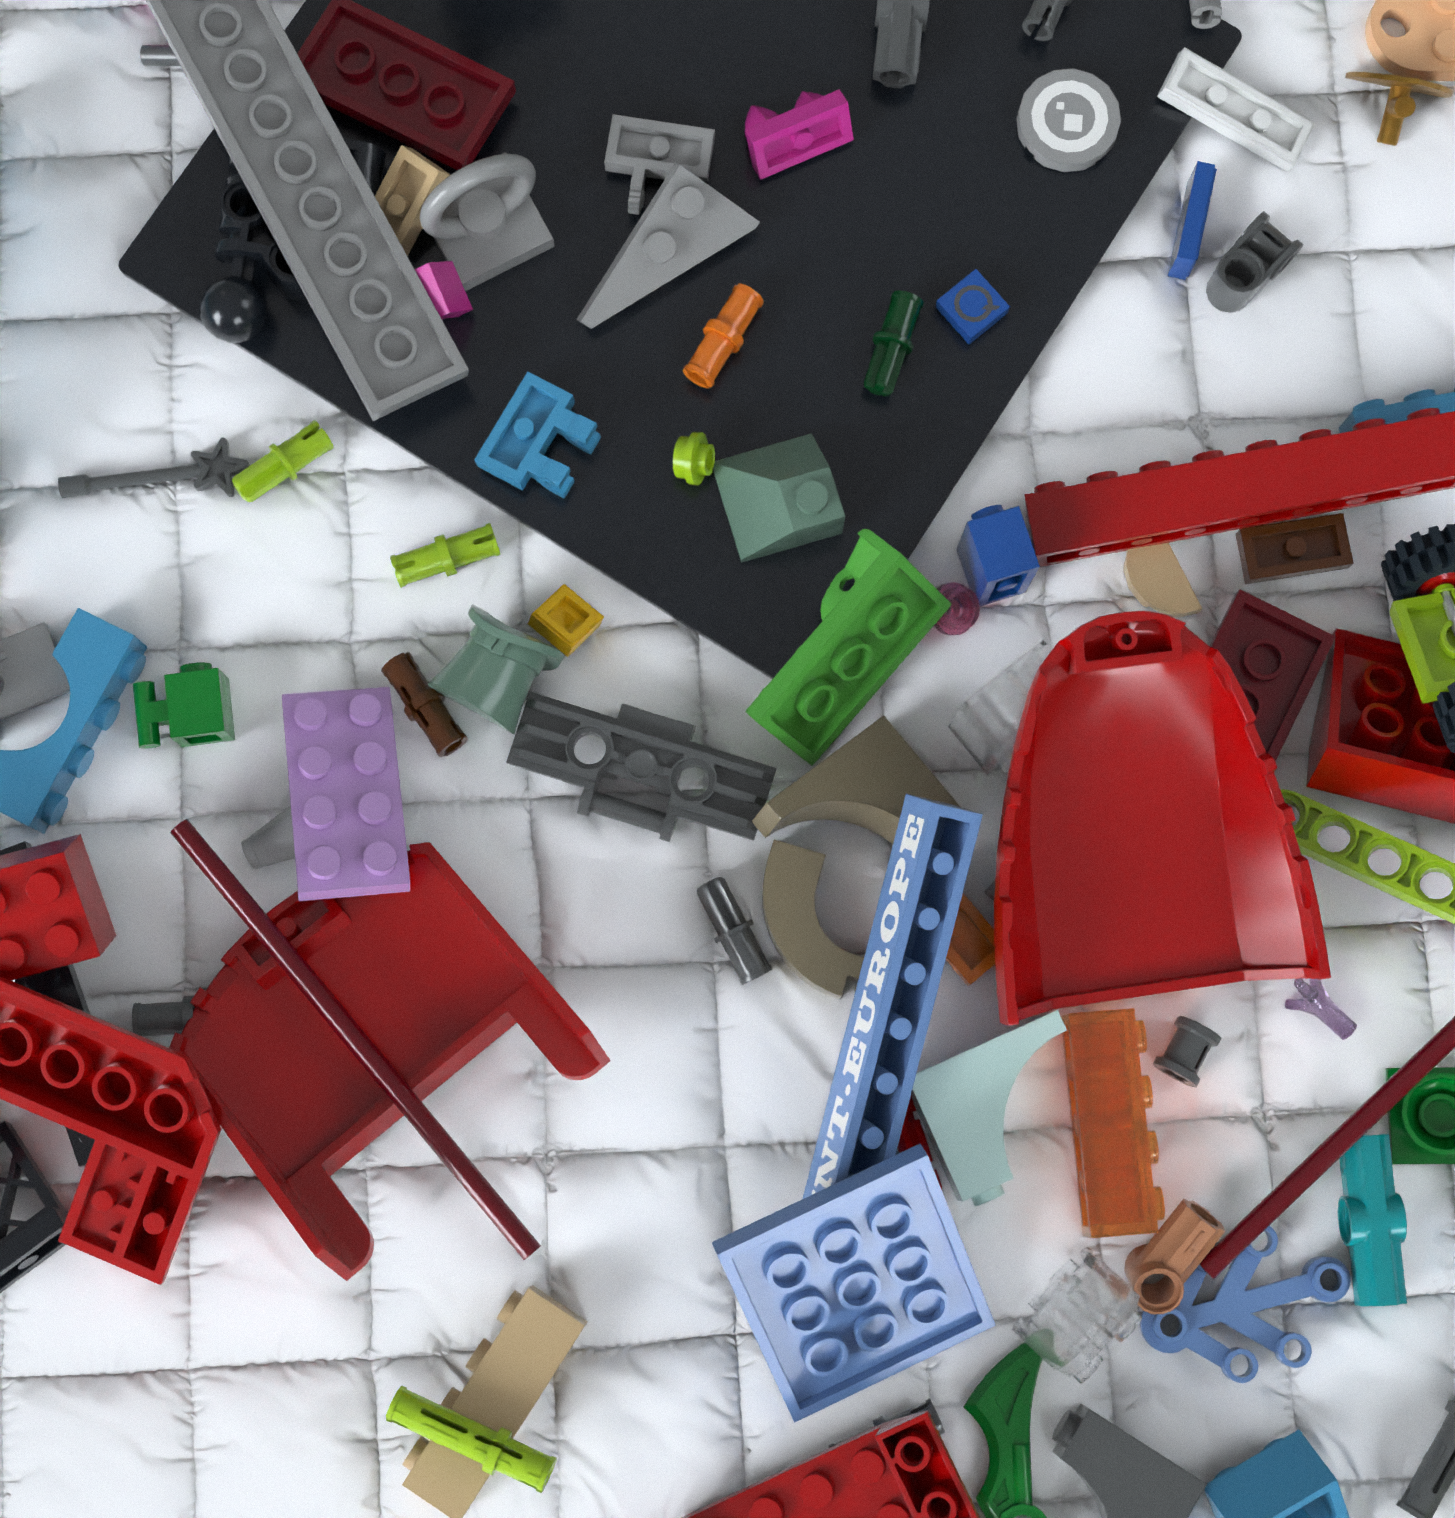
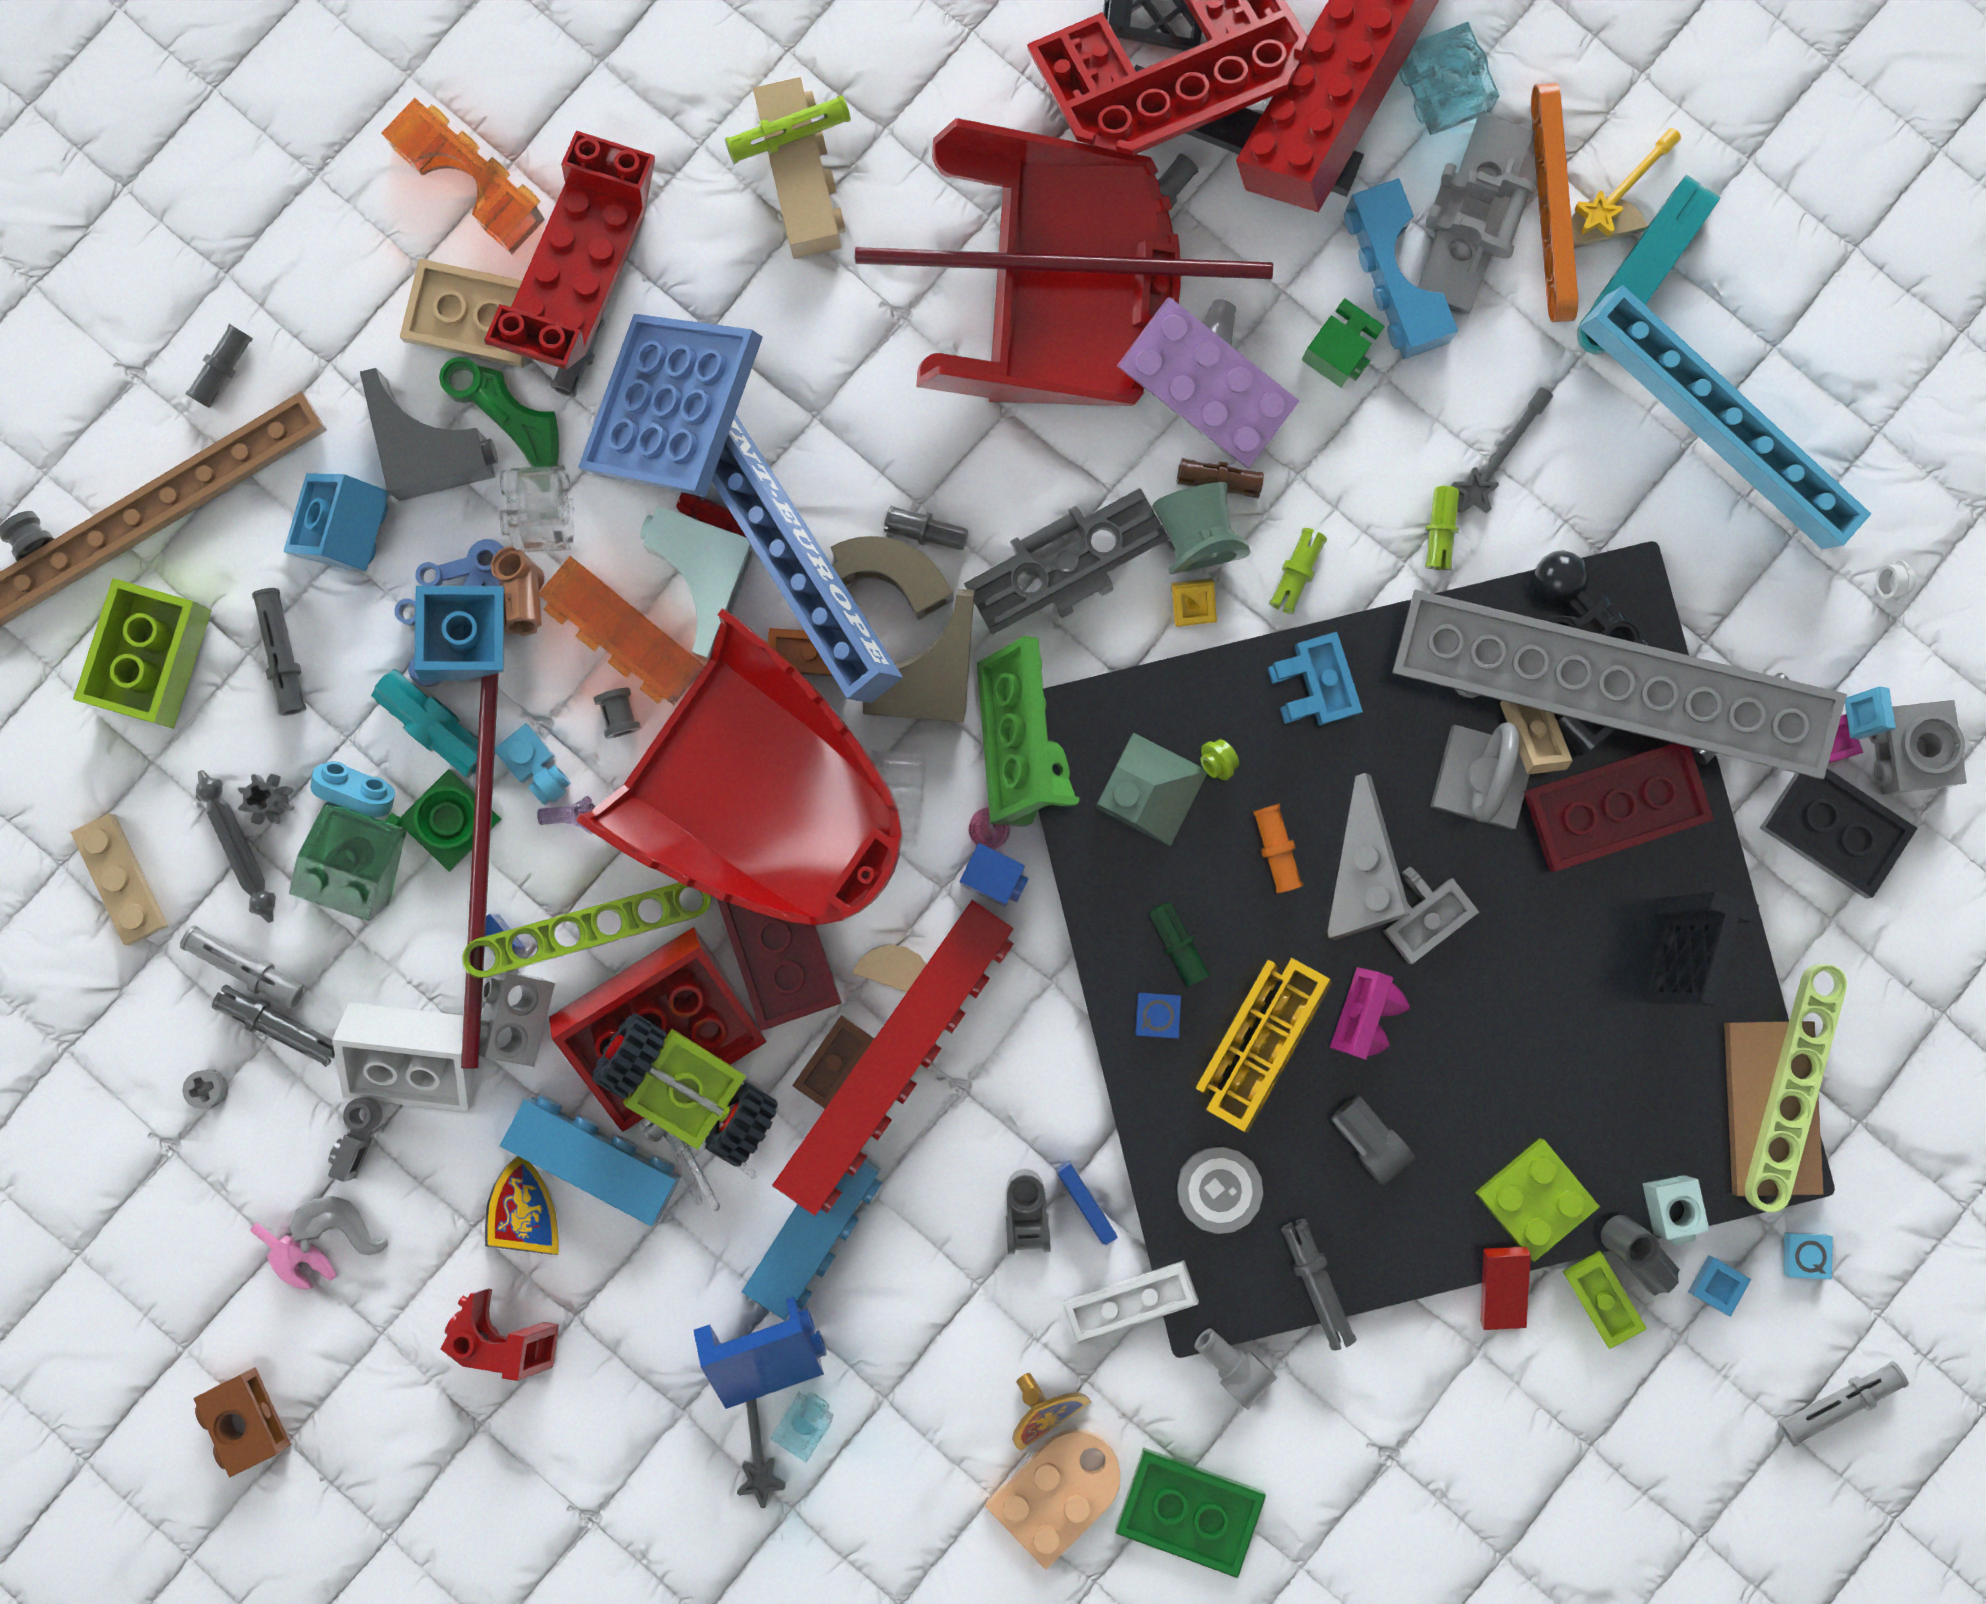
camera: 135 degrees right, 5 degrees up
(444, 288) = (1458, 707): dark pink tile -> none
(906, 179) = (1270, 1045): none -> yellow brick
(1271, 1266) = (458, 632): none -> dark azure slope
(1306, 1100) = (526, 757): none -> medium azure plate

